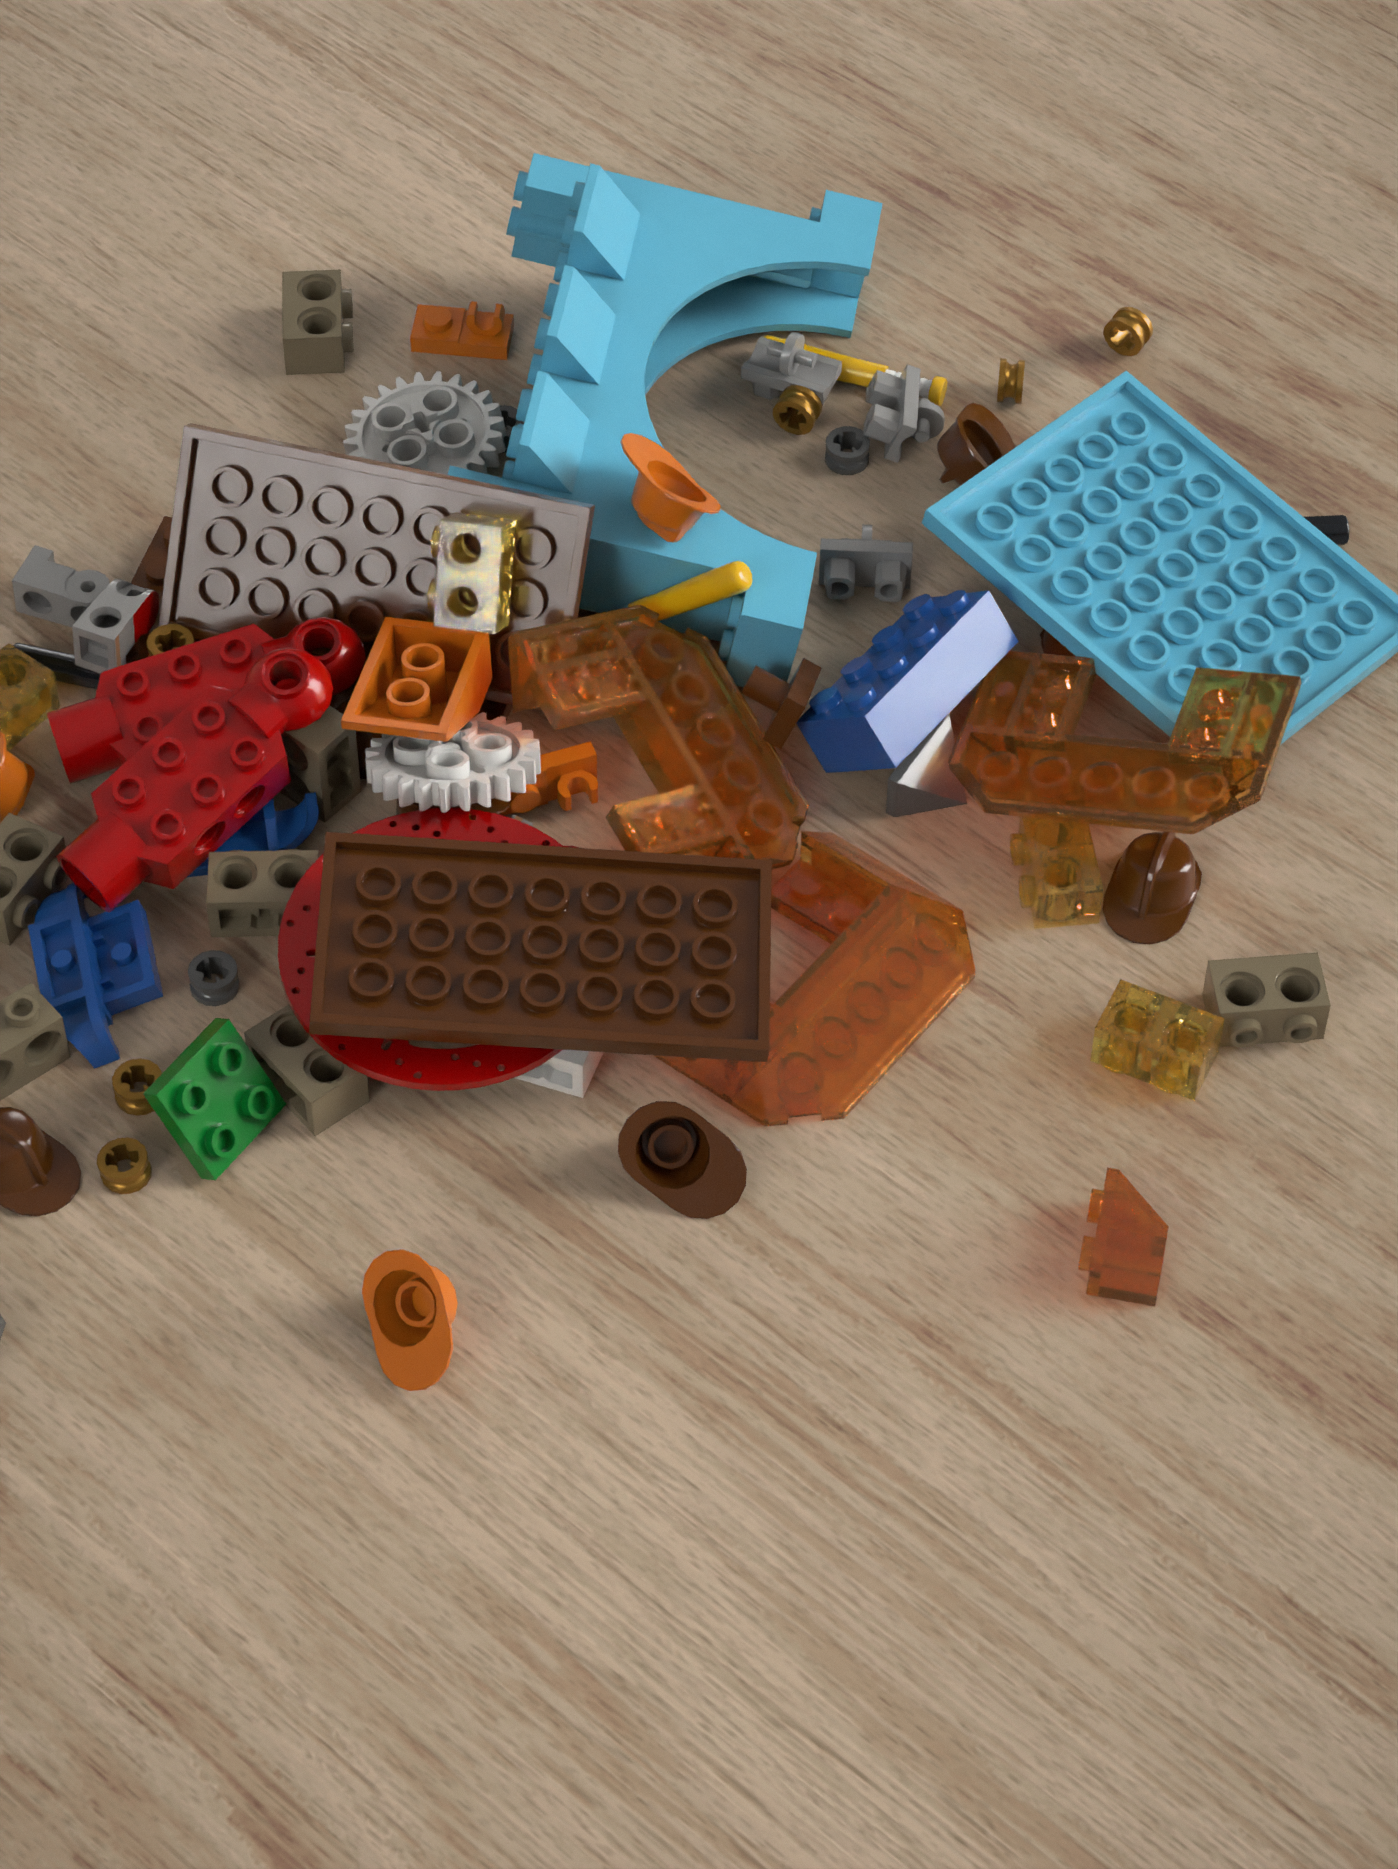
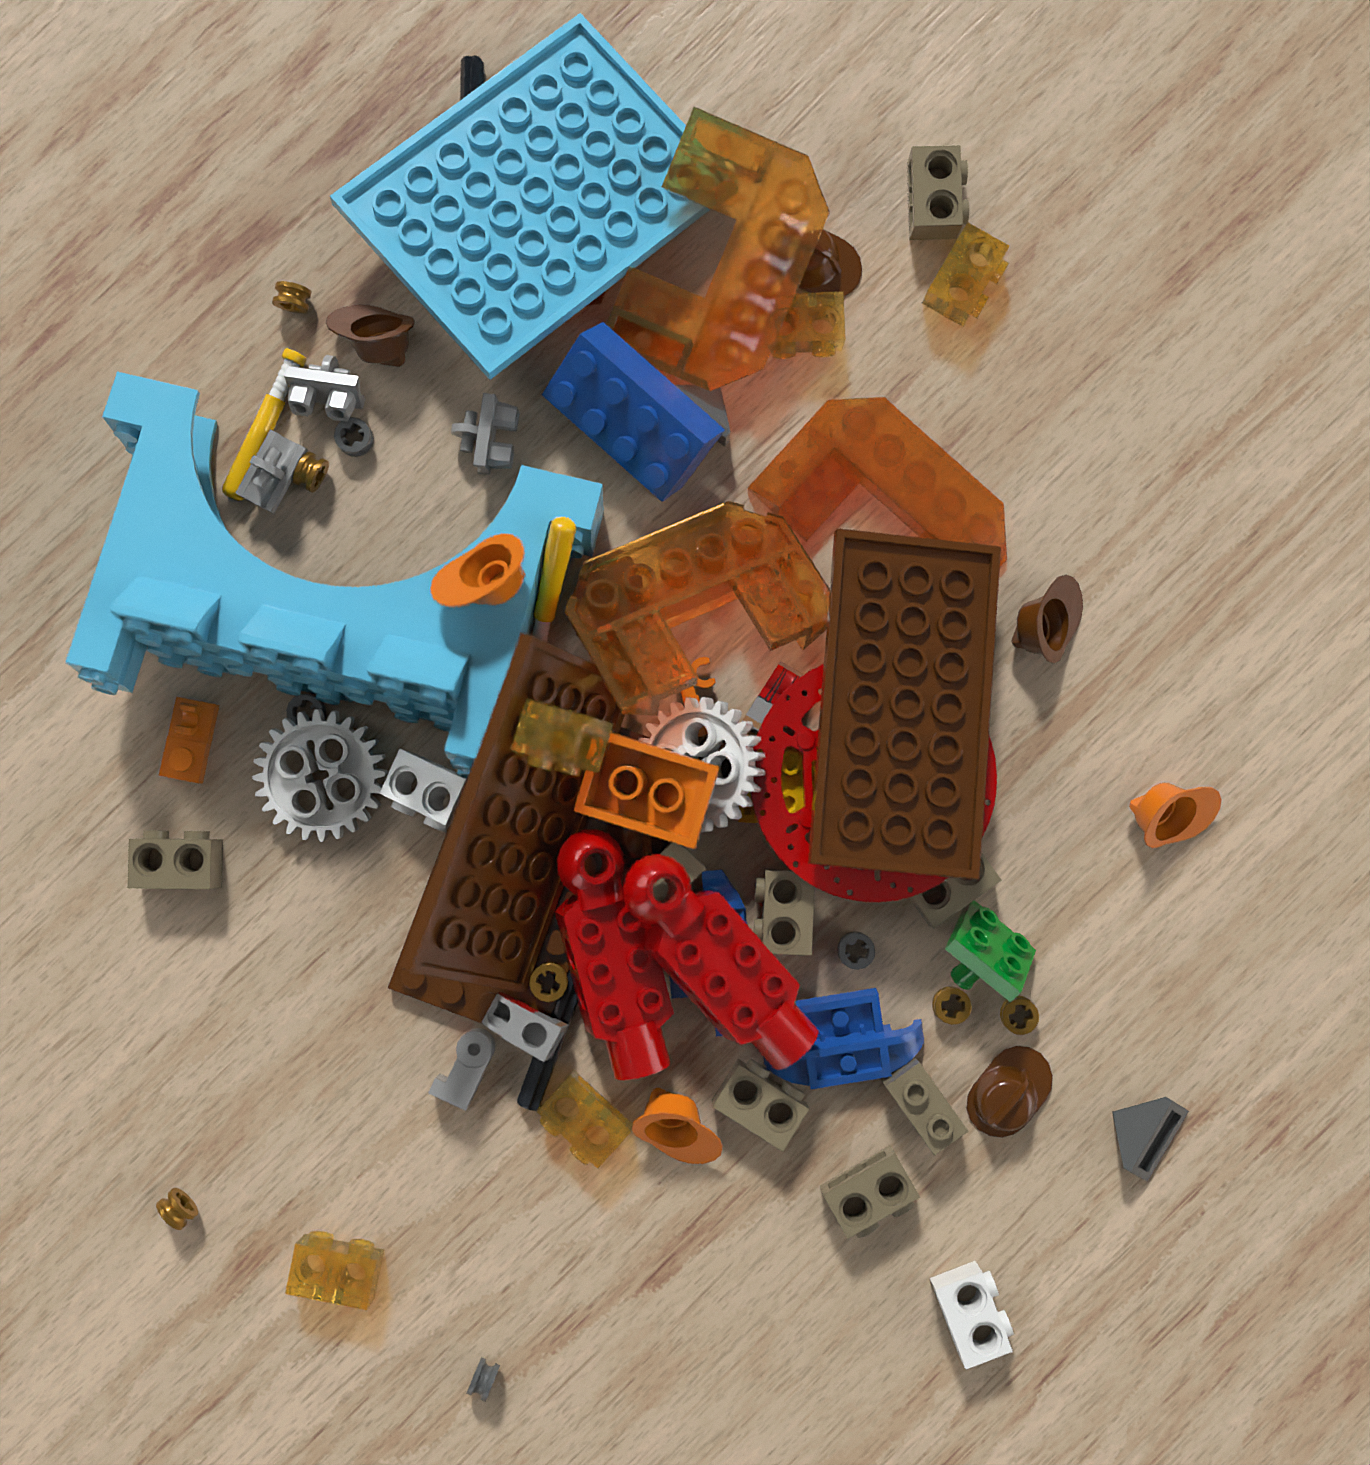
camera: 80 degrees left, 35 degrees up
(783, 698) = (641, 504): reddish brown tile -> none
(1122, 341) = (242, 195): pearl gold bush -> none
(1128, 1243) = (1138, 322): clear orange slope -> none

